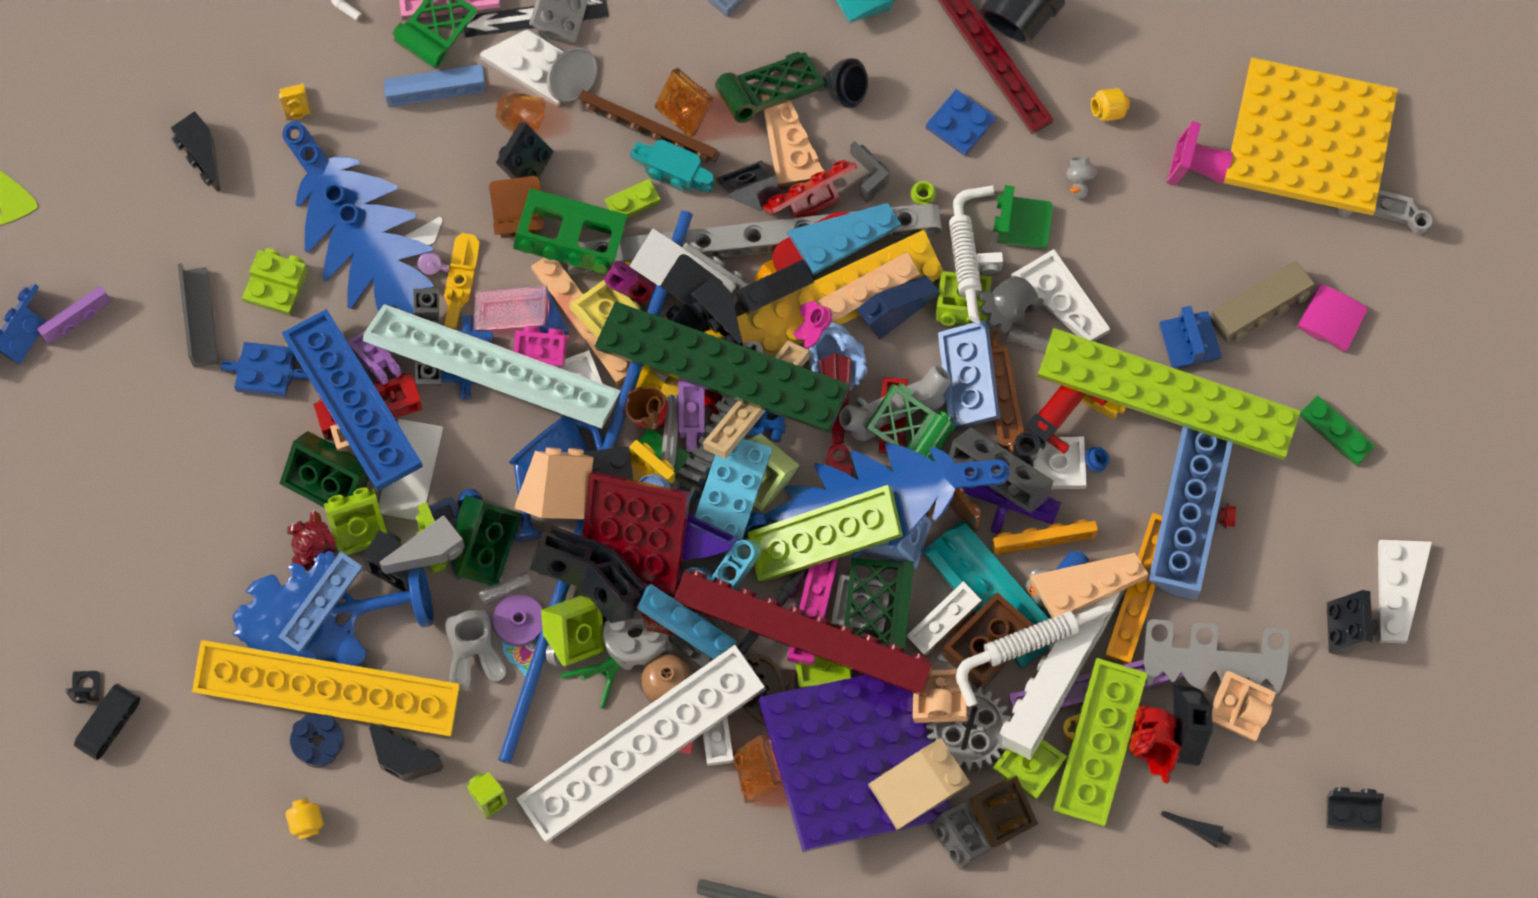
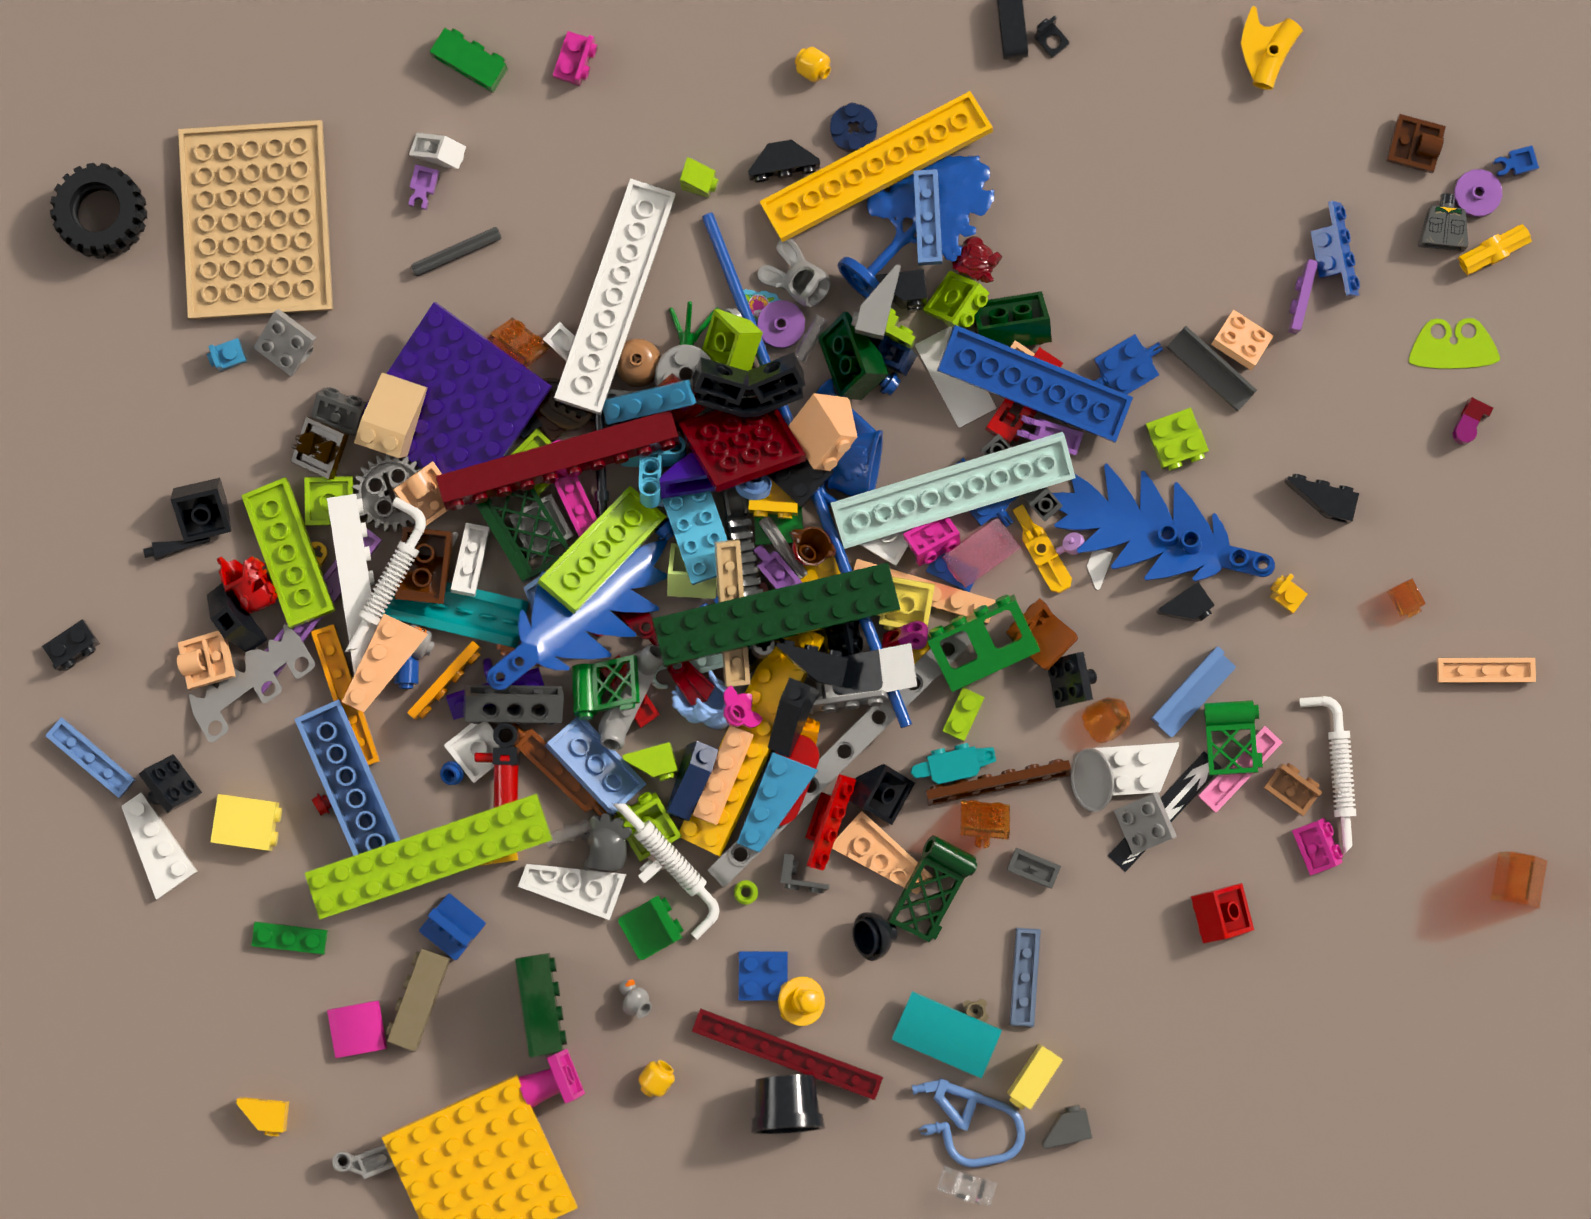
camera: 140 degrees right, 15 degrees up
(33, 123) = (1466, 426): none -> leg
(153, 315) = (1242, 340): none -> light nougat plate
(205, 29) = (1407, 598): none -> clear orange brick
(380, 149) = (1189, 605): none -> black slope
(675, 45) = (1033, 868): none -> dark grey plate
(916, 339) = (655, 761): none -> lime slope
(944, 77) = (801, 1001): none -> yellow plate
(1149, 838) = (201, 509): none -> black slope
(1162, 221) = (540, 1005): none -> dark green slope
(1306, 546) = (246, 822): none -> light yellow brick
(1405, 701) = (90, 757): none -> medium blue plate
(1460, 306) = (265, 1114): none -> yellow slope

